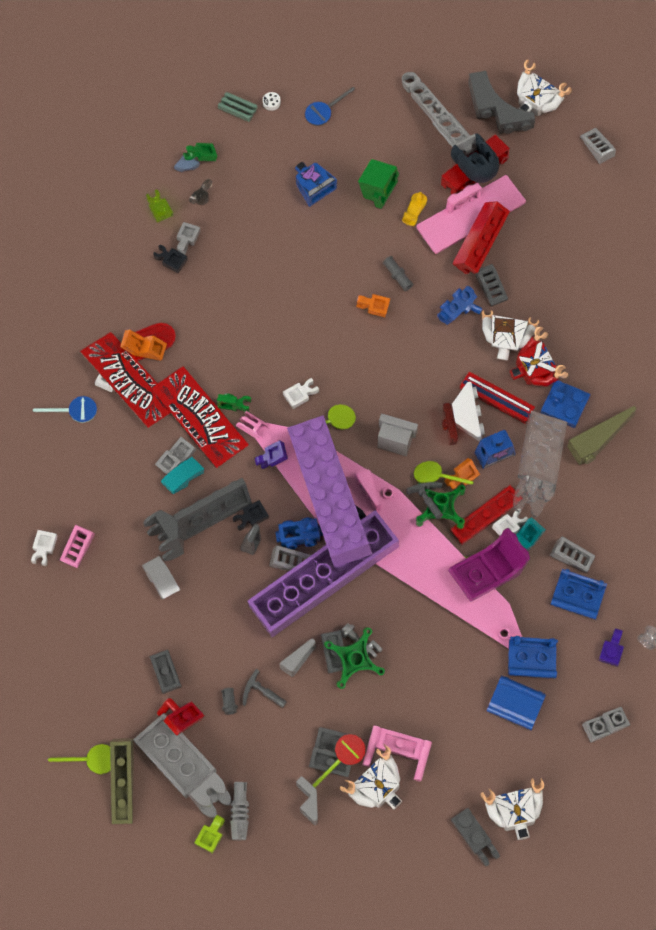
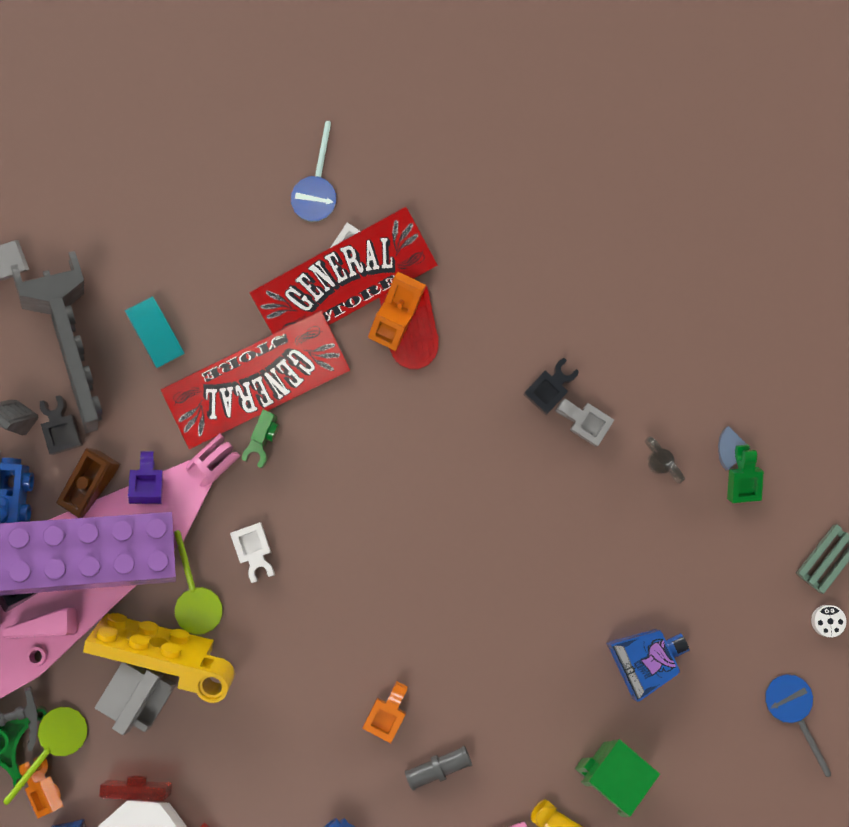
camera: 95 degrees right, 15 degrees up
(43, 544) = (92, 100): white plate -> none
(86, 543) = (95, 165): bright pink slope -> none
(159, 208) = (654, 387): clear neon green plate -> none
(176, 455) = (193, 328): light grey slope -> none
(281, 491) = (87, 482): none -> reddish brown slope
(367, 420) = (163, 651): none -> yellow hinge

